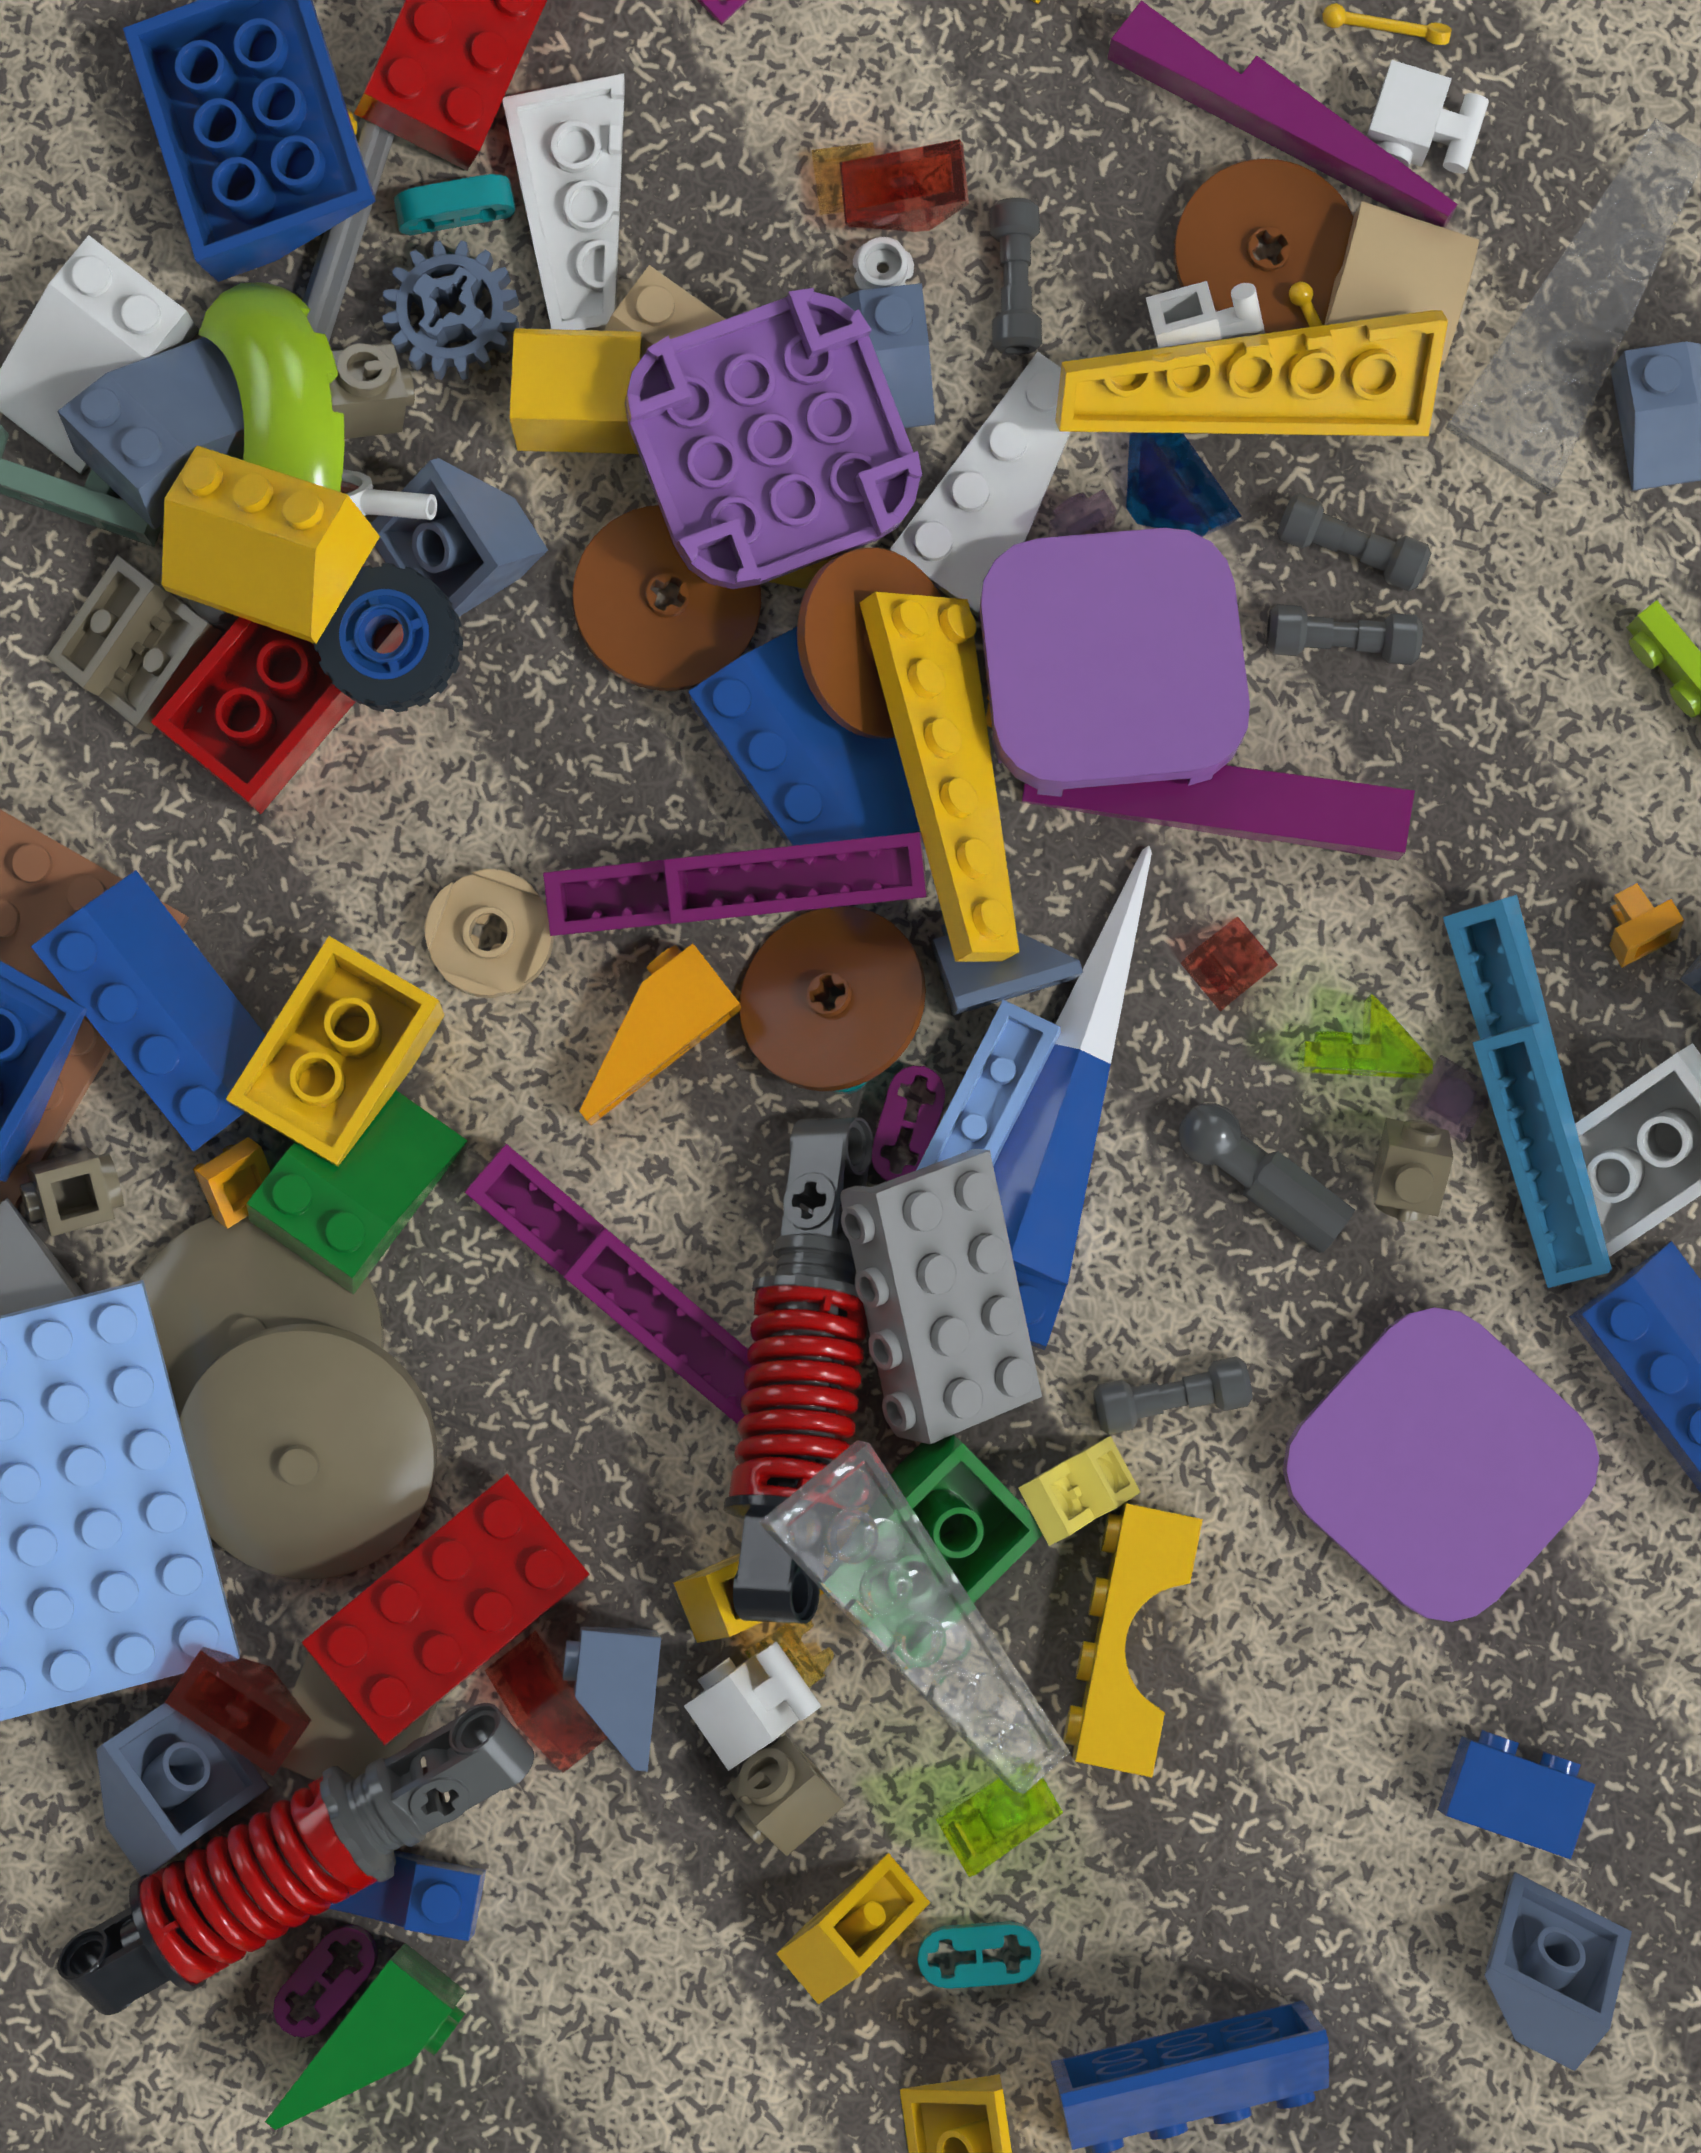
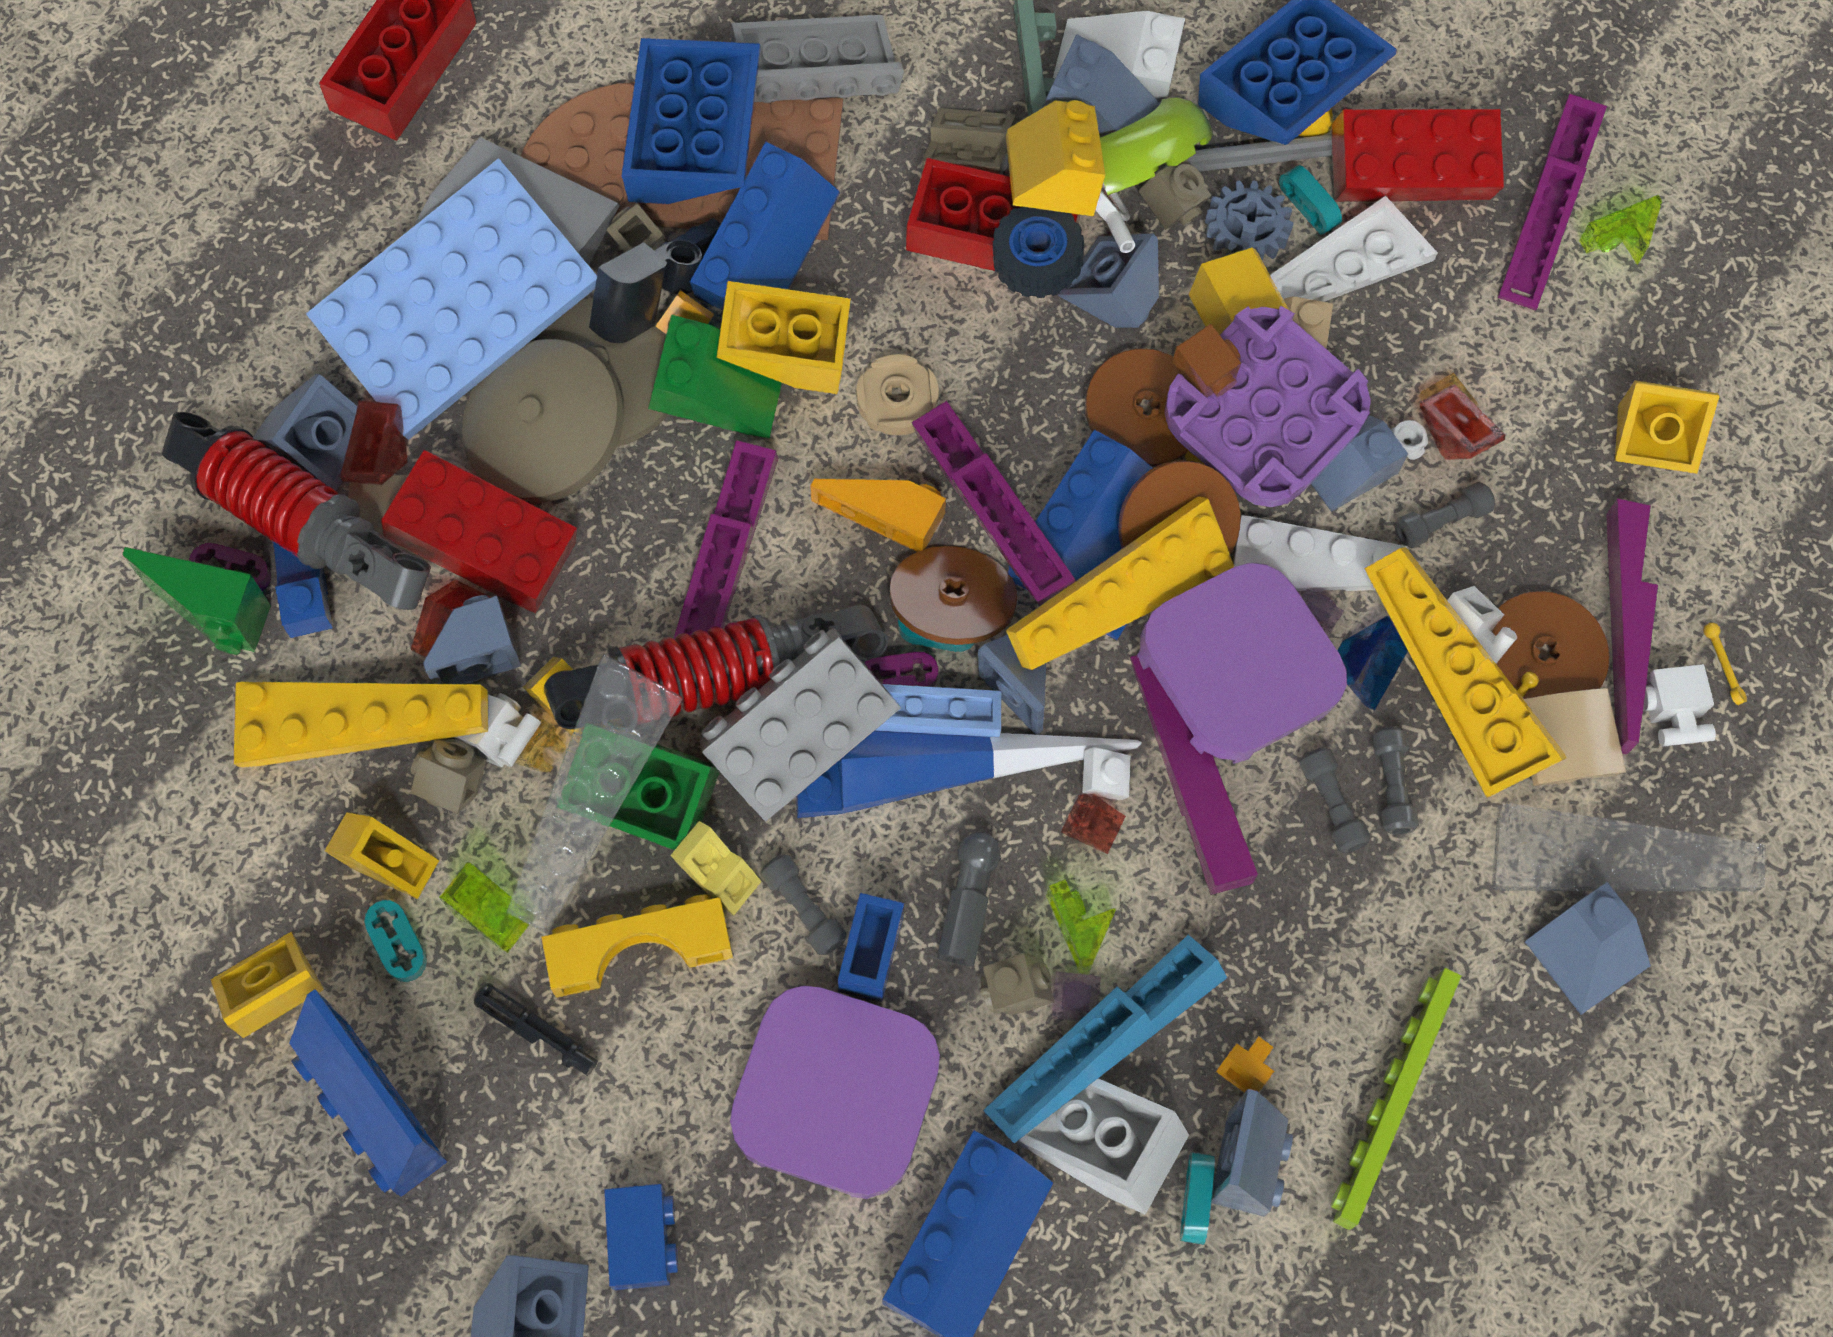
camera: 60 degrees right, 15 degrees down
(174, 1236) = (632, 283): none -> black plate
(623, 1936) = (326, 719): none -> yellow wing
(686, 490) = (1208, 362): none -> dark orange brick
(1174, 914) = (1106, 773): none -> white plate
(1180, 1818) = (535, 1028): none -> black piece
(1279, 1335) = (871, 947): none -> blue piece

